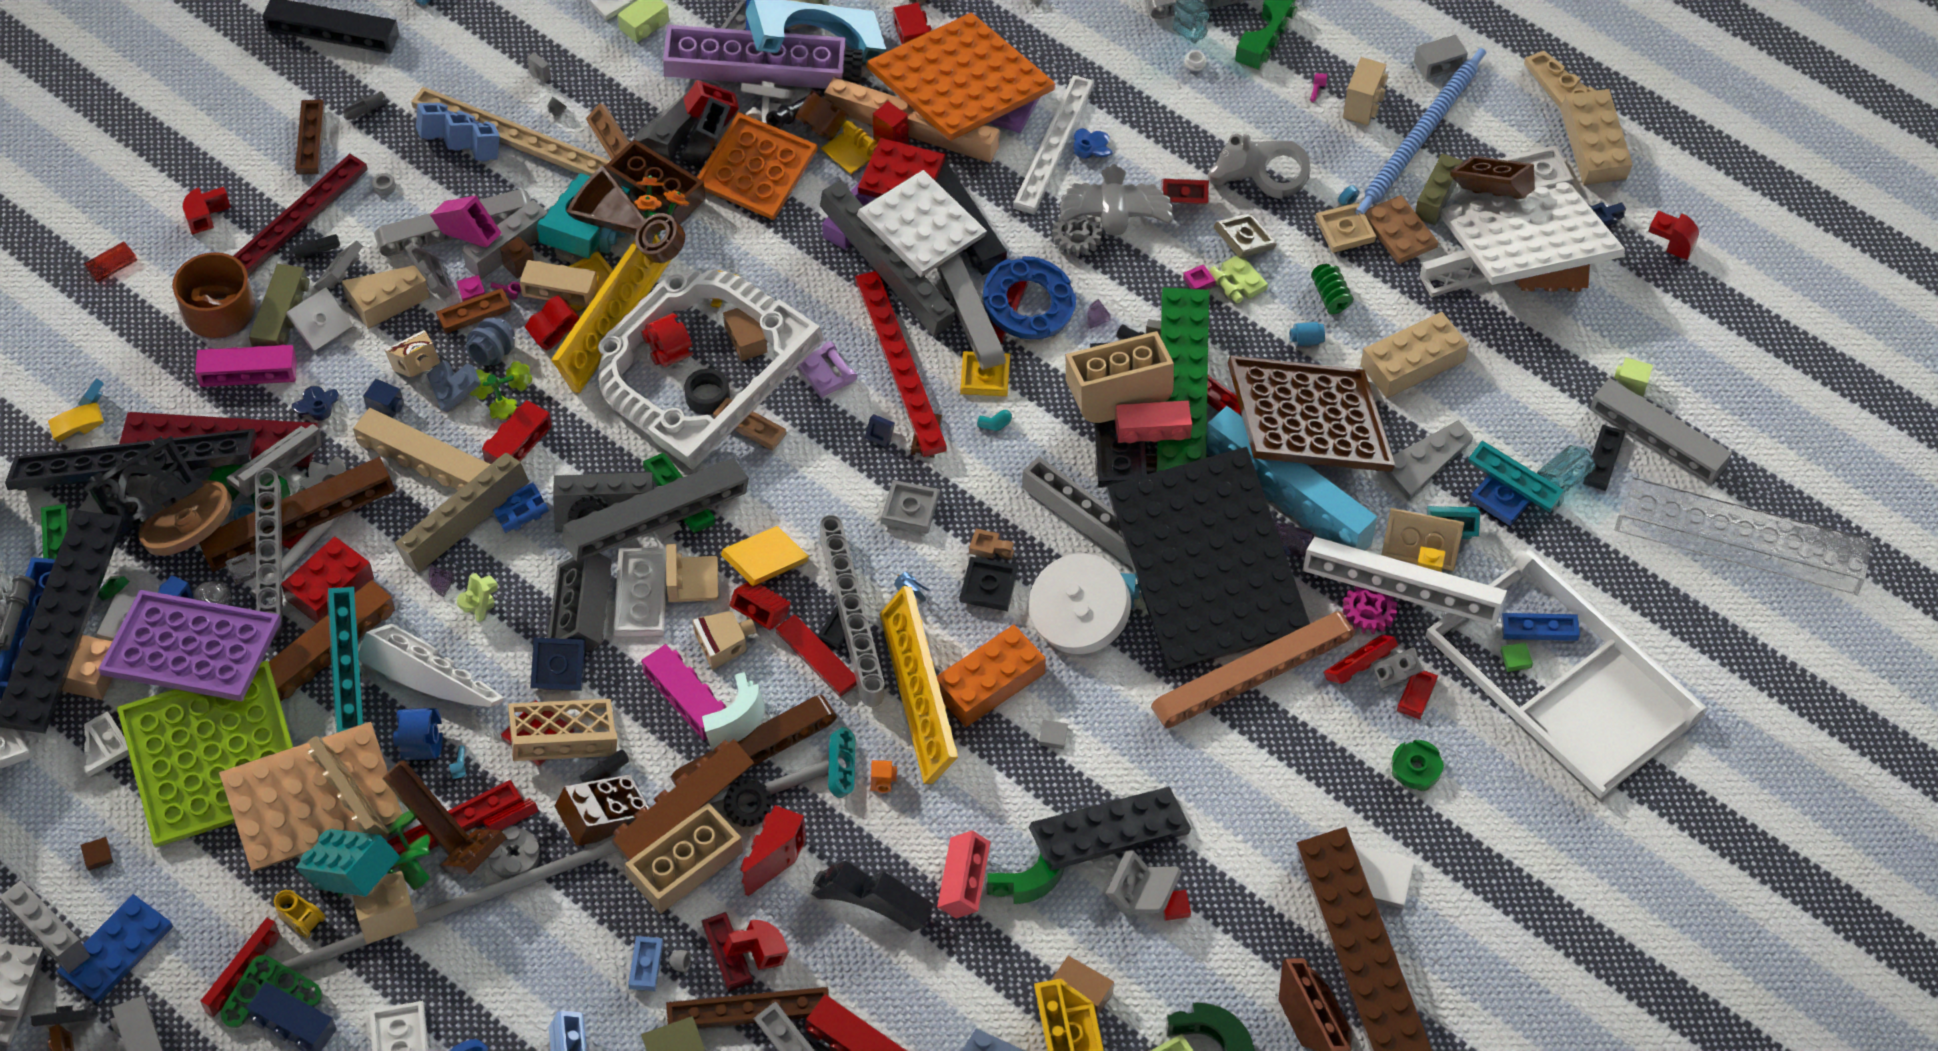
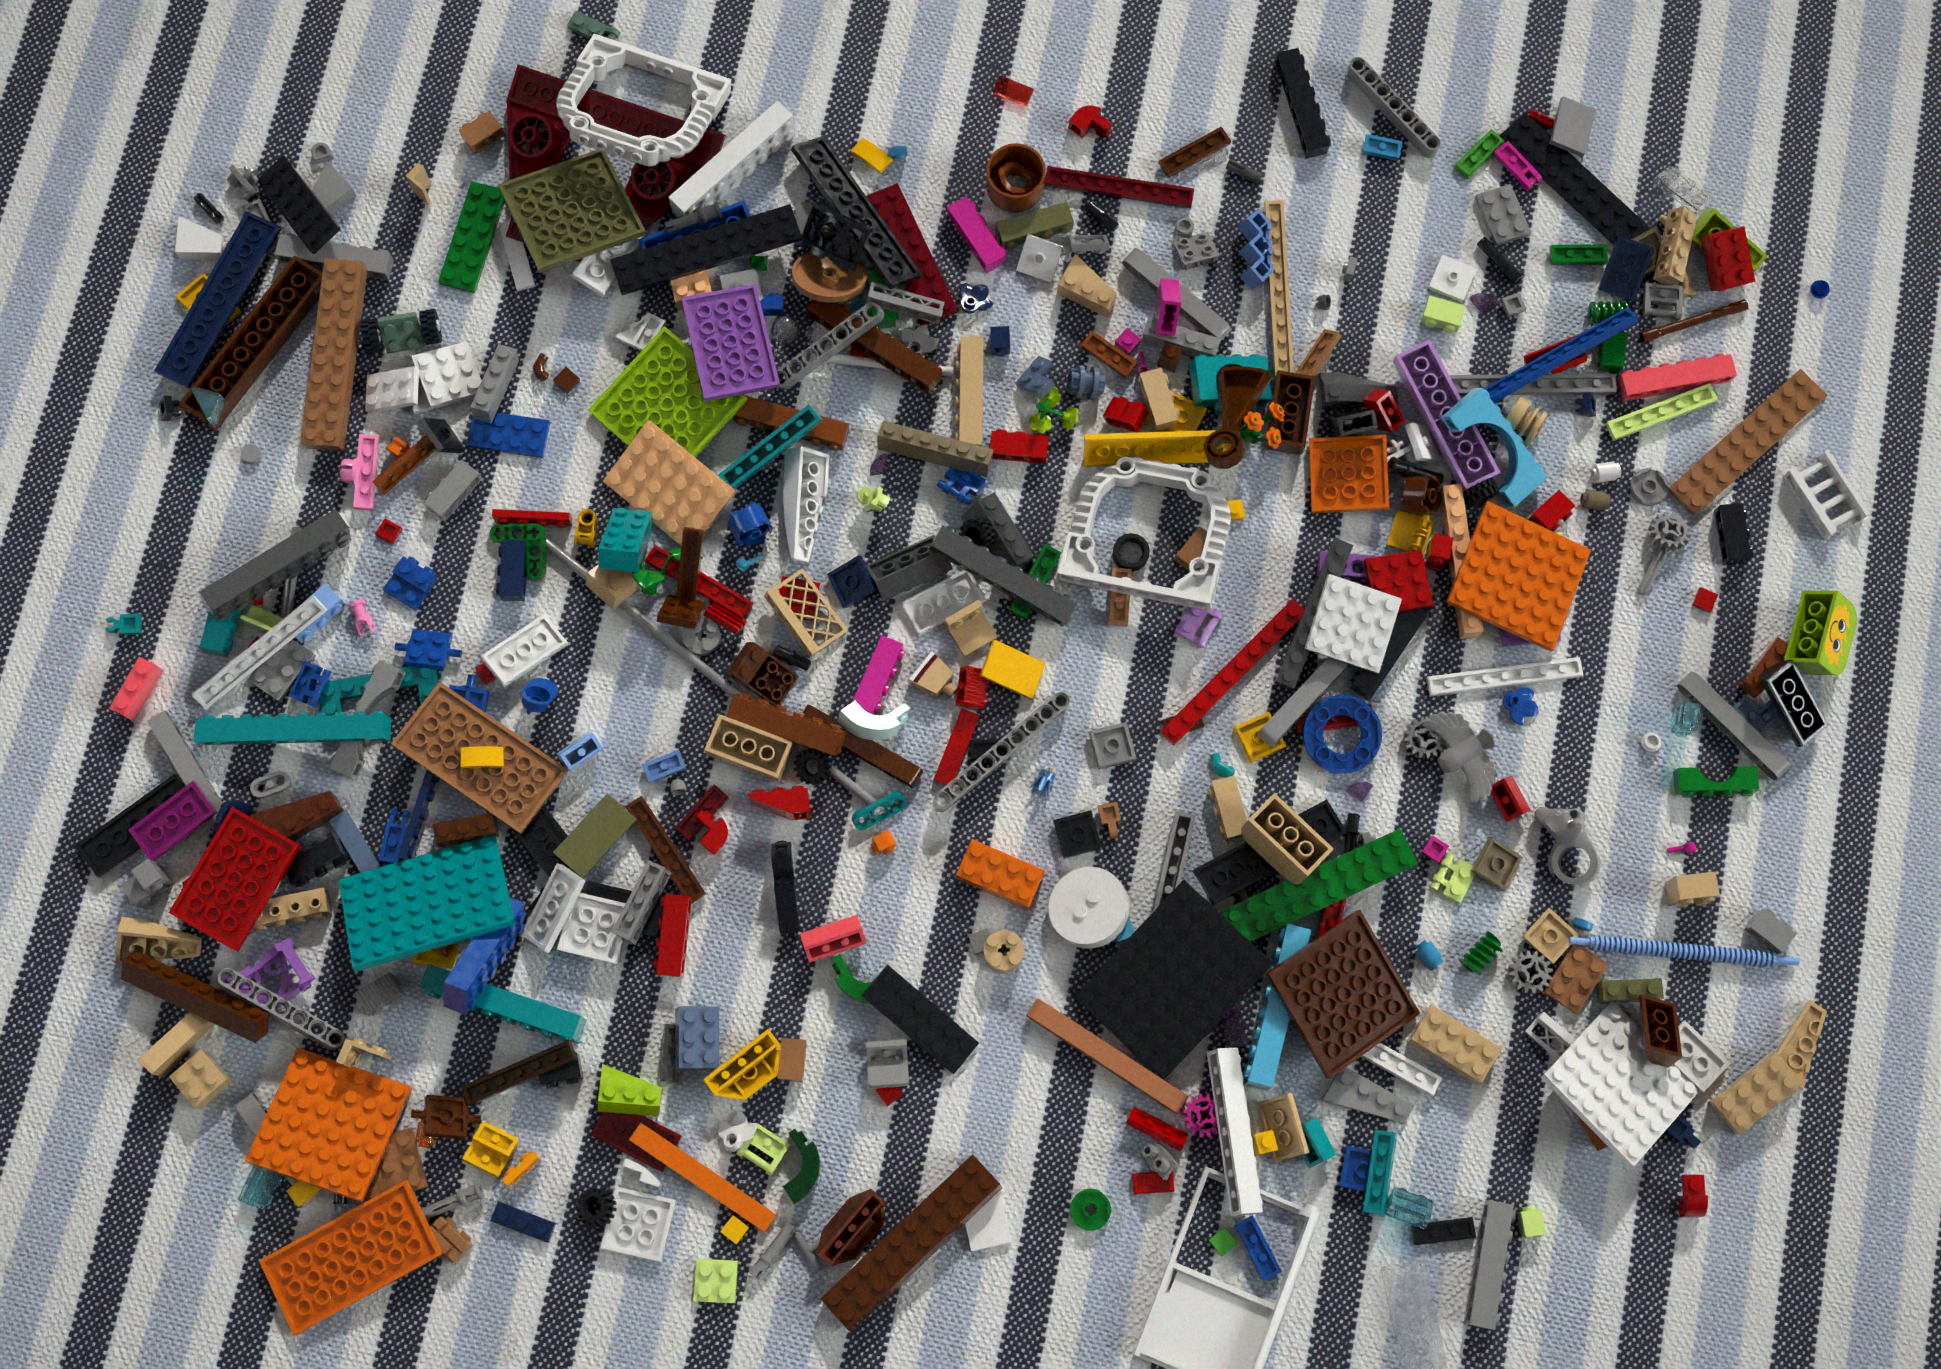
camera: 60 degrees right, 20 degrees up
(54, 526) = (783, 196): green plate -> none
(62, 876) = (538, 367): none -> reddish brown arm
(330, 567) = (836, 394): red brick -> none
(350, 793) = (666, 510): tan piece -> none
(415, 354) = (1046, 339): tan torso -> none
(419, 183) = (1195, 250): none -> light grey hinge
(431, 270) = (1123, 305): light grey wing -> none
(667, 340) = (1152, 501): red brick -> none
(879, 430) = (1164, 690): dark blue tile -> none
(918, 685) = (966, 827): yellow plate -> none
(1046, 431) = (1228, 807): none -> tan brick
(1080, 711) = (996, 960): none -> tan brick
(1153, 421) = (1265, 883): coral brick -> none
(1373, 259) = (1532, 964): none -> light grey gear
(1417, 409) = (1403, 1068): none -> white plate

